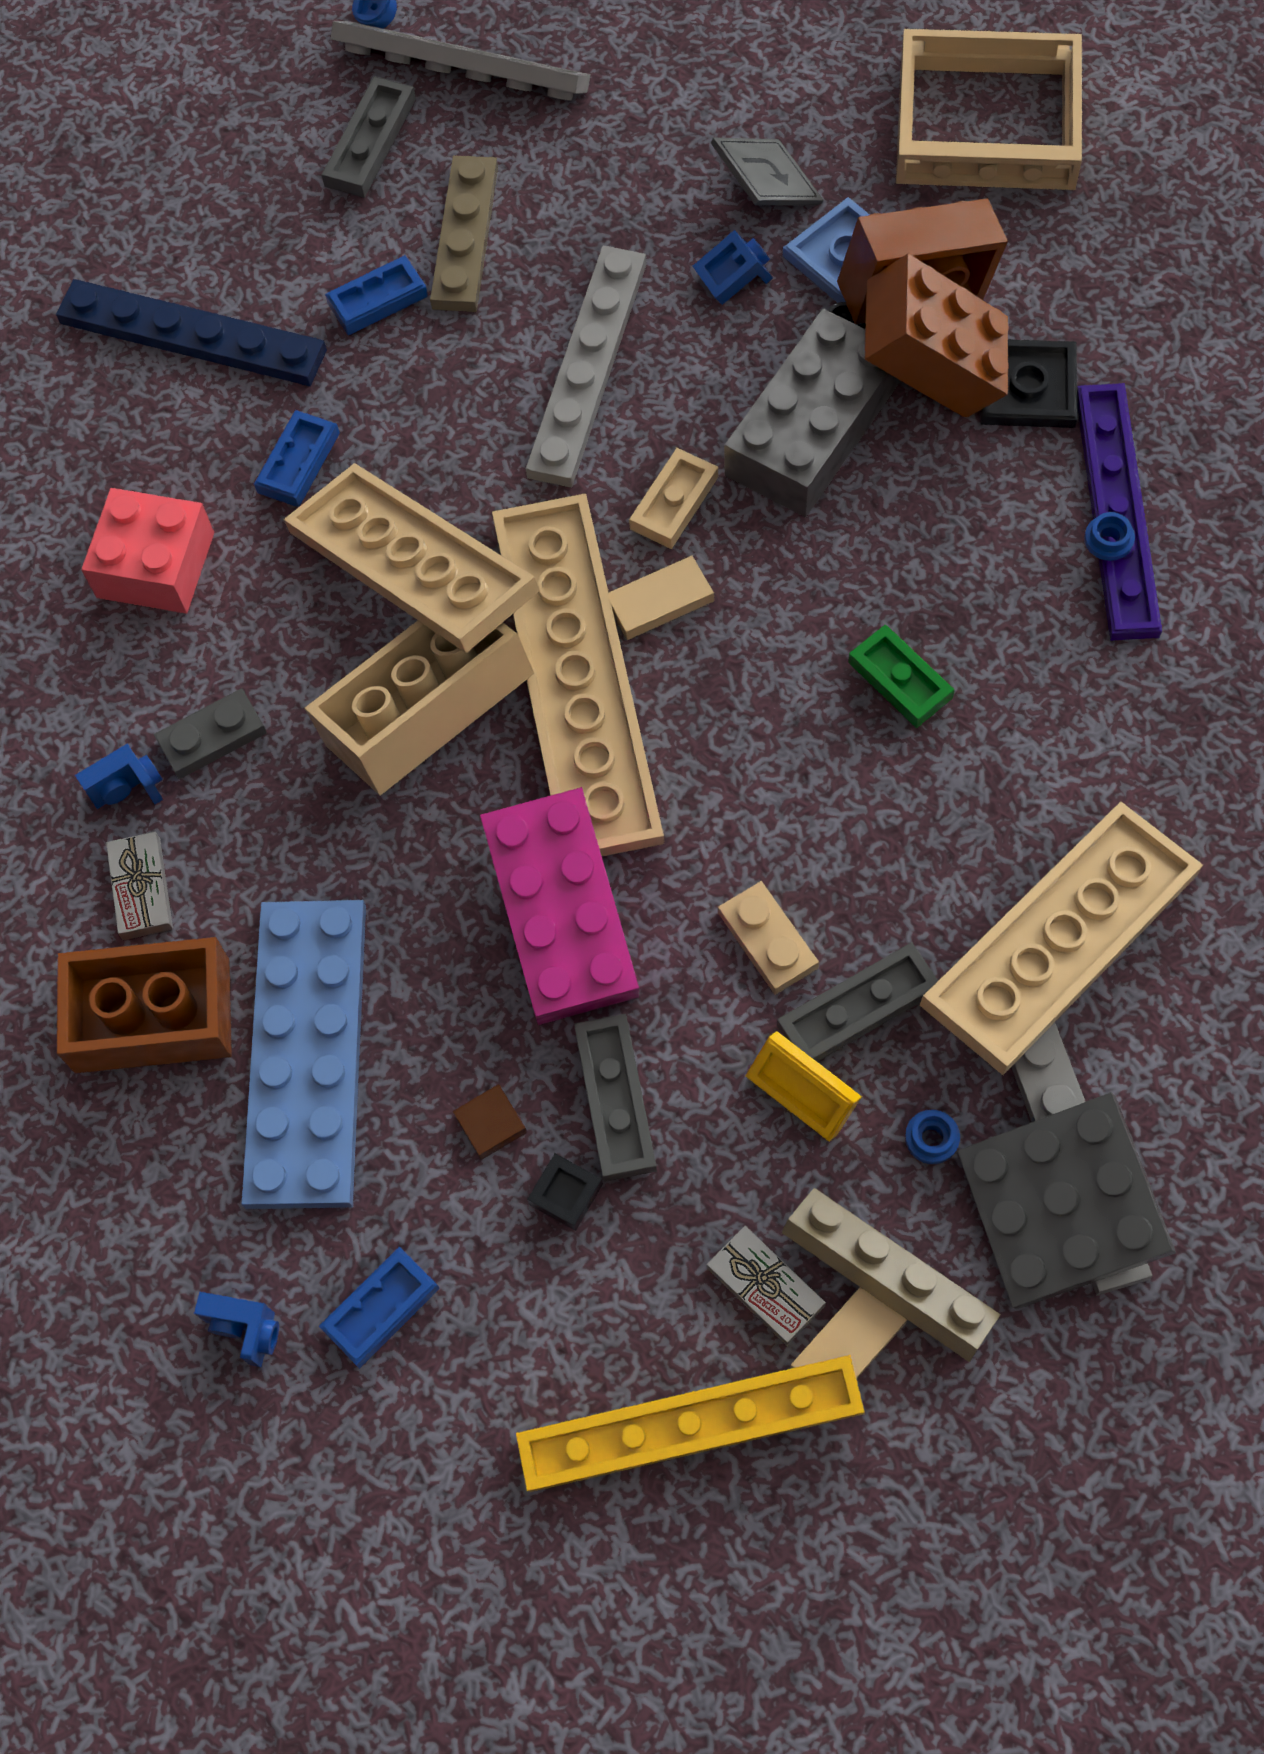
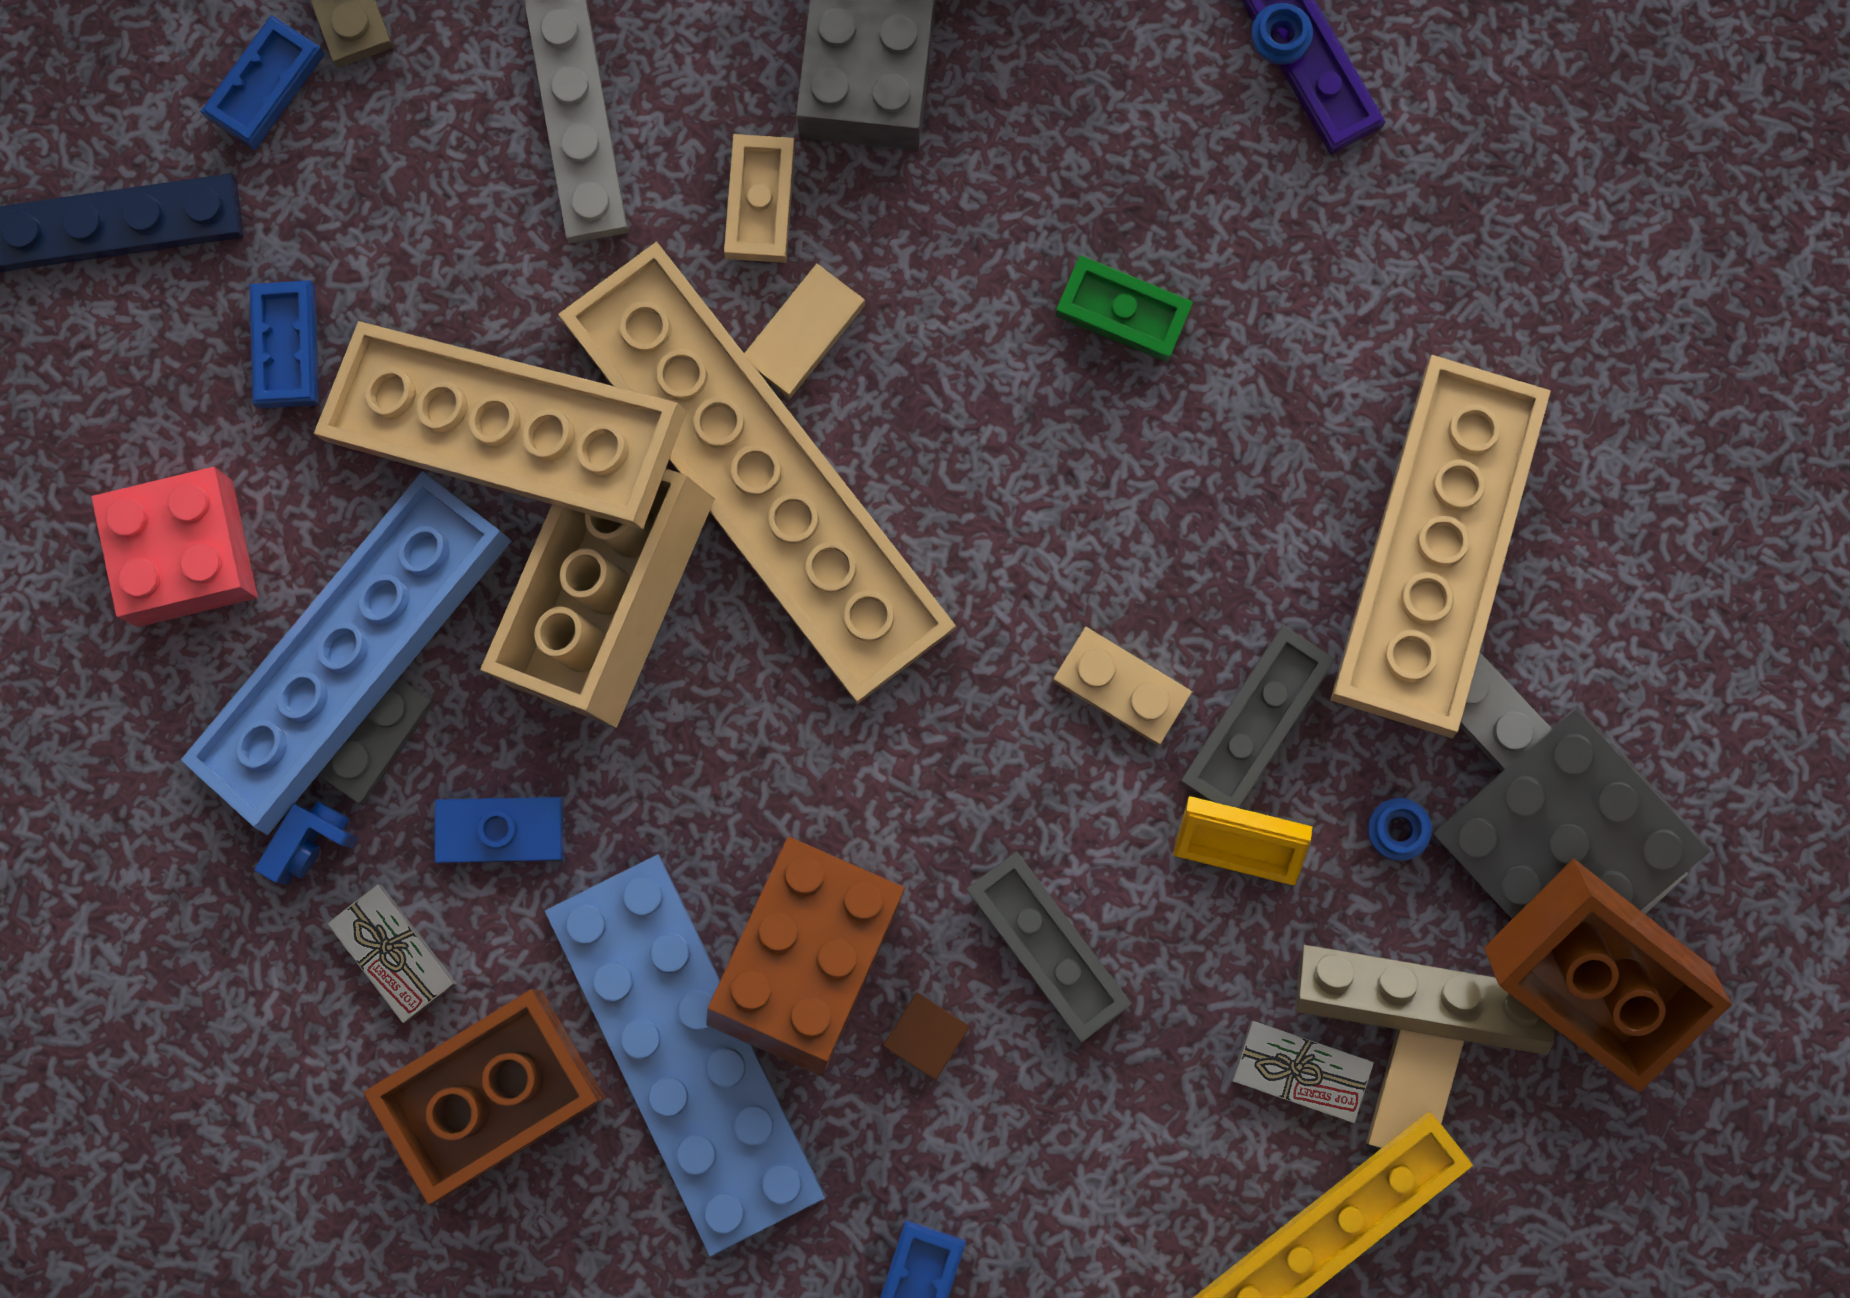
camera: 30 degrees left, 15 degrees up
(222, 665) = (345, 652): none -> medium blue plate
(261, 835) = (499, 830): none -> blue plate
(426, 1012) = (804, 956): none -> dark orange brick
(560, 906) = (890, 768): dark pink brick -> none
(565, 1191) = (1047, 1075): black plate -> none
(1042, 1309) = (1606, 976): none -> dark orange brick

